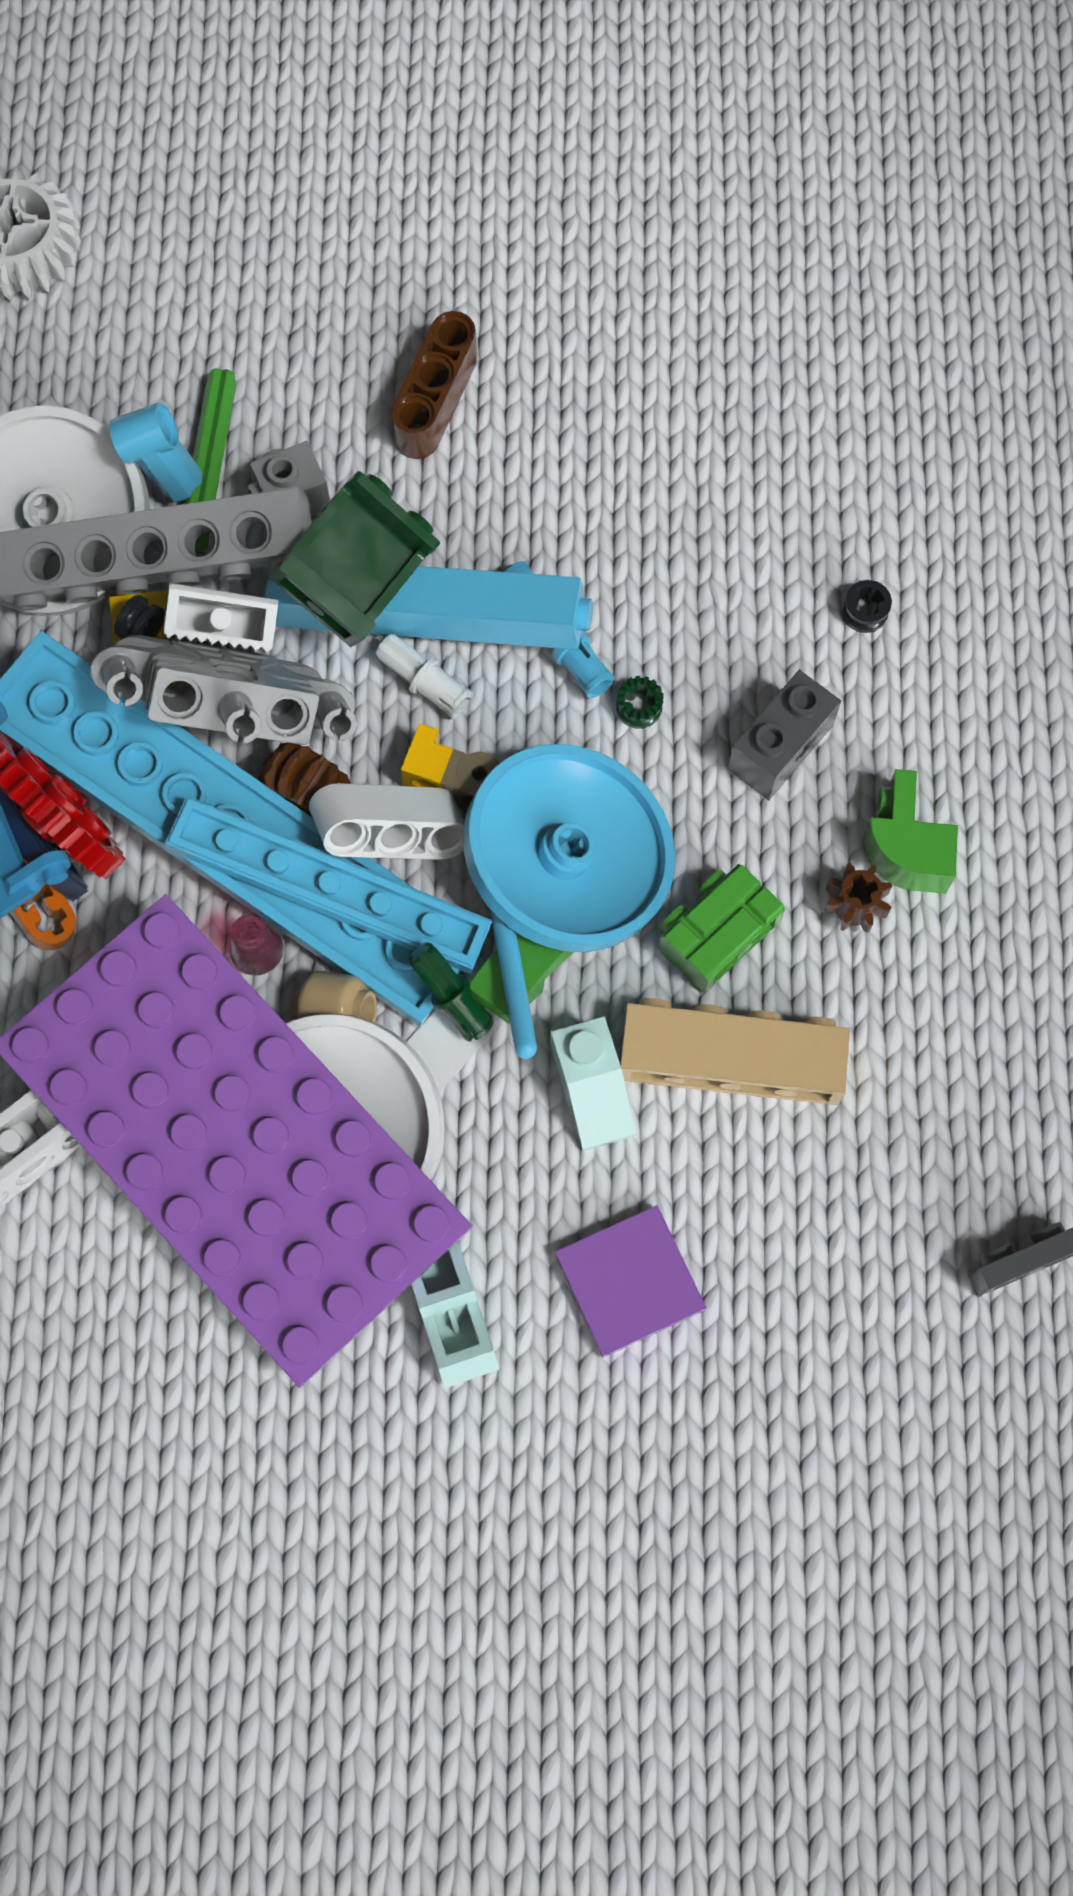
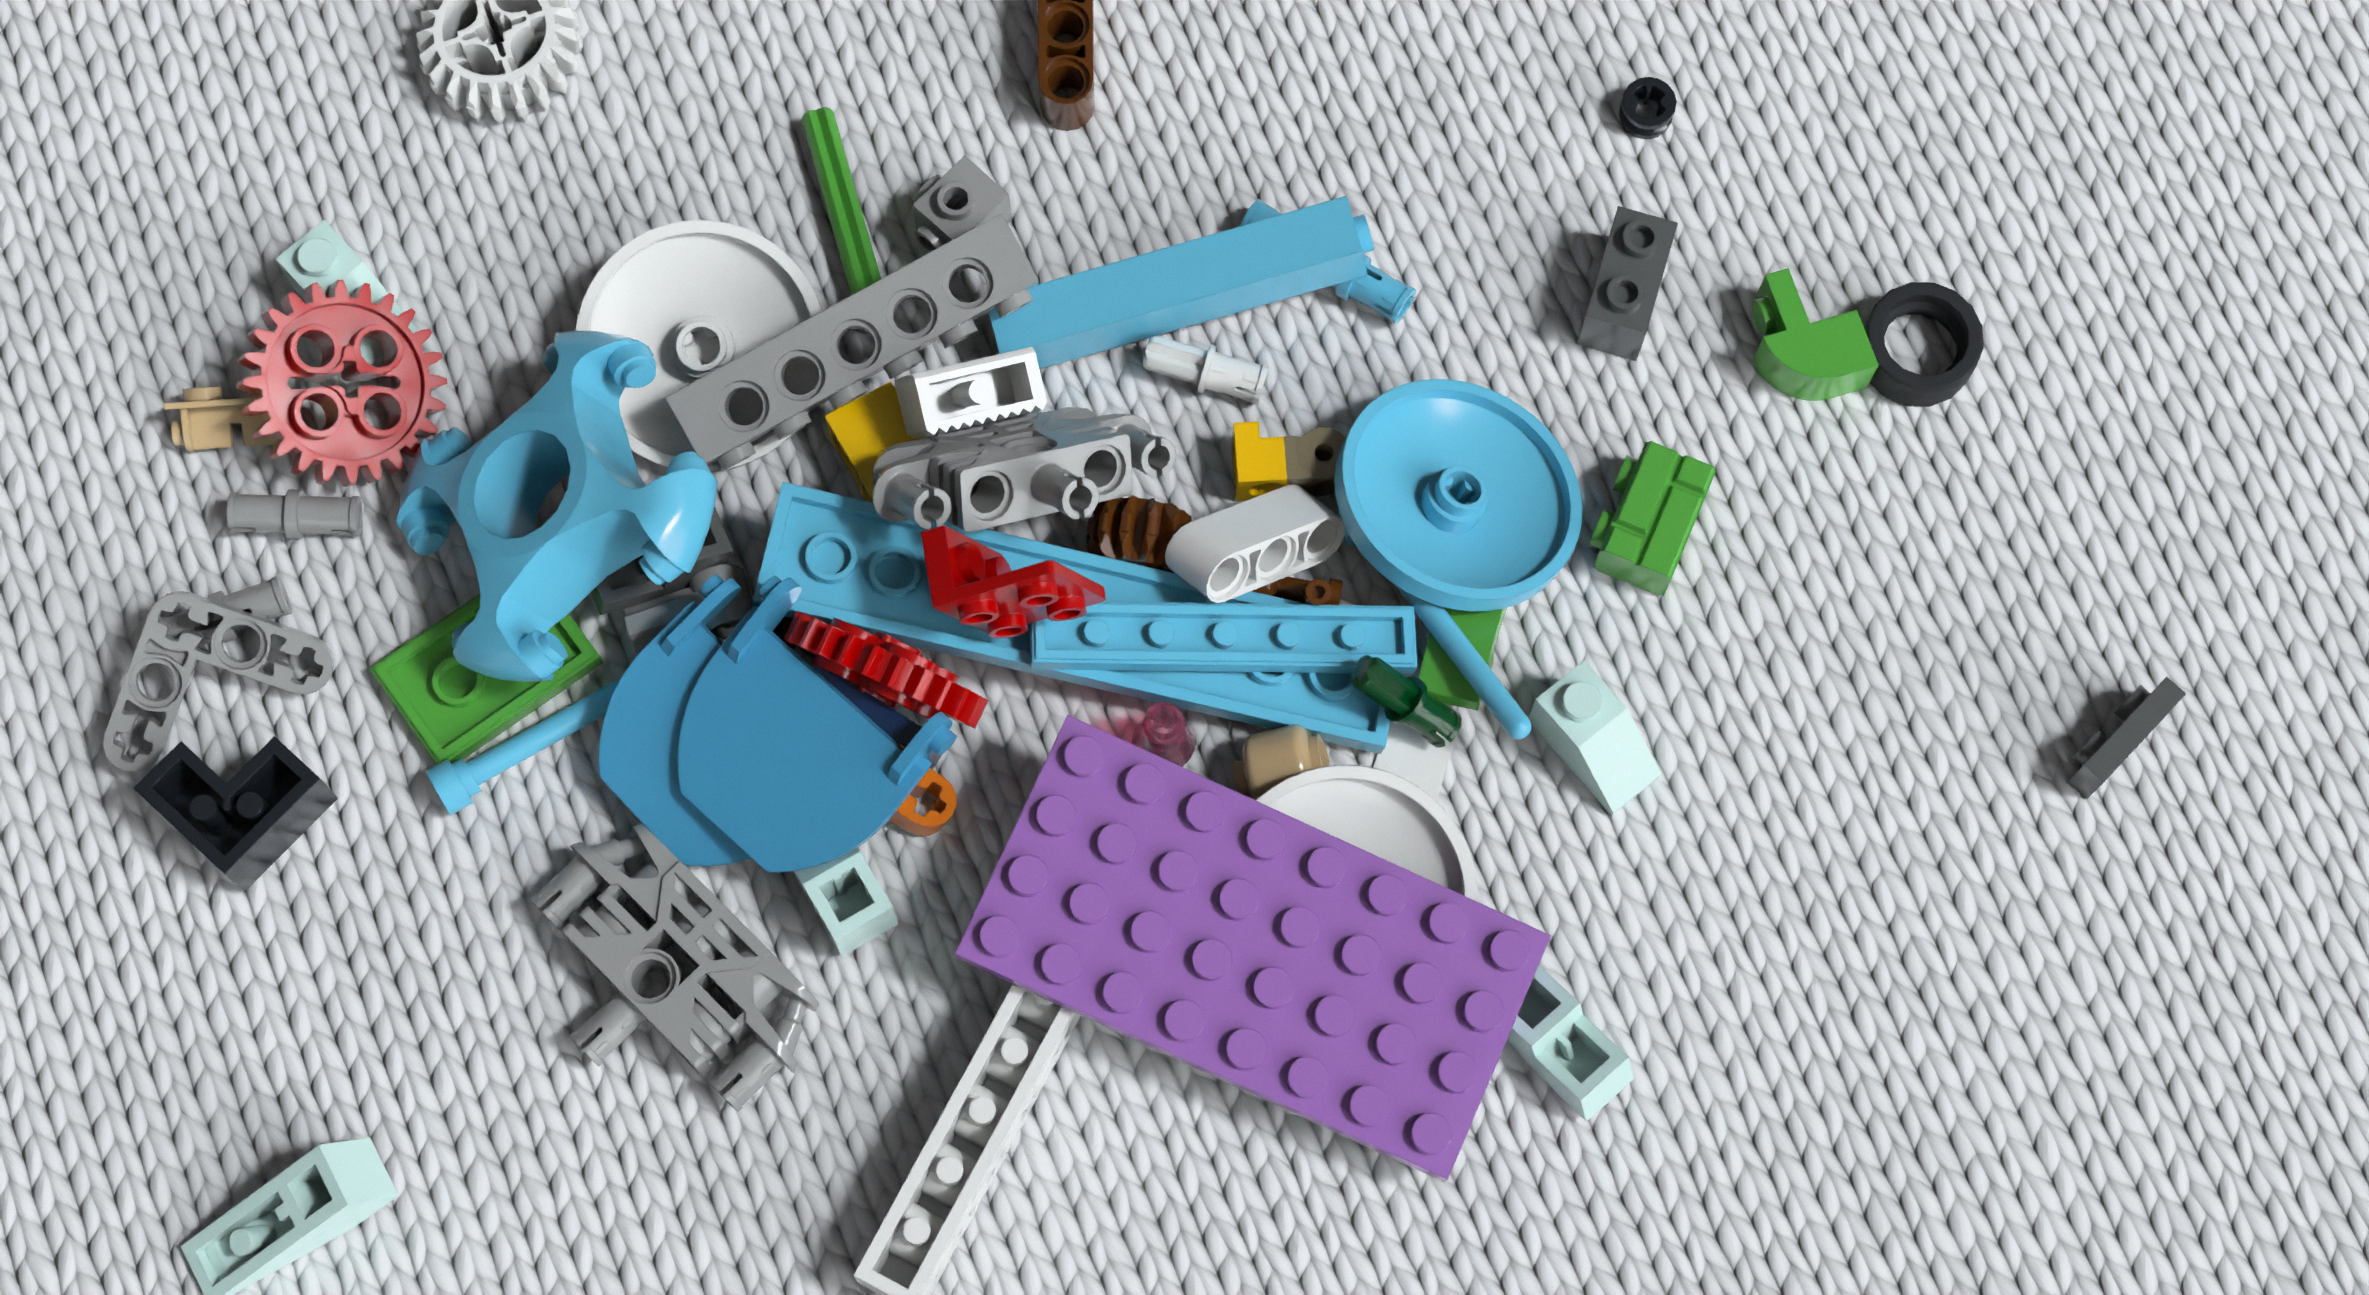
camera: 25 degrees left, 0 degrees up
(139, 618) = (879, 428): black bush -> none
(150, 769) = (983, 591): none -> red bracket
(153, 442) = (801, 225): medium azure piece -> none
(355, 557) = (1096, 267): dark green panel -> none
(417, 876) = (1305, 591): none -> reddish brown piece
(628, 691) = (1463, 295): dark green bush -> none
(630, 1281) = (1726, 930): medium lavender tile -> none
(735, 1052) = (1730, 644): tan brick -> none
(865, 885) = (1776, 414): reddish brown gear -> none
(1031, 847) = (1952, 313): none -> black tyre

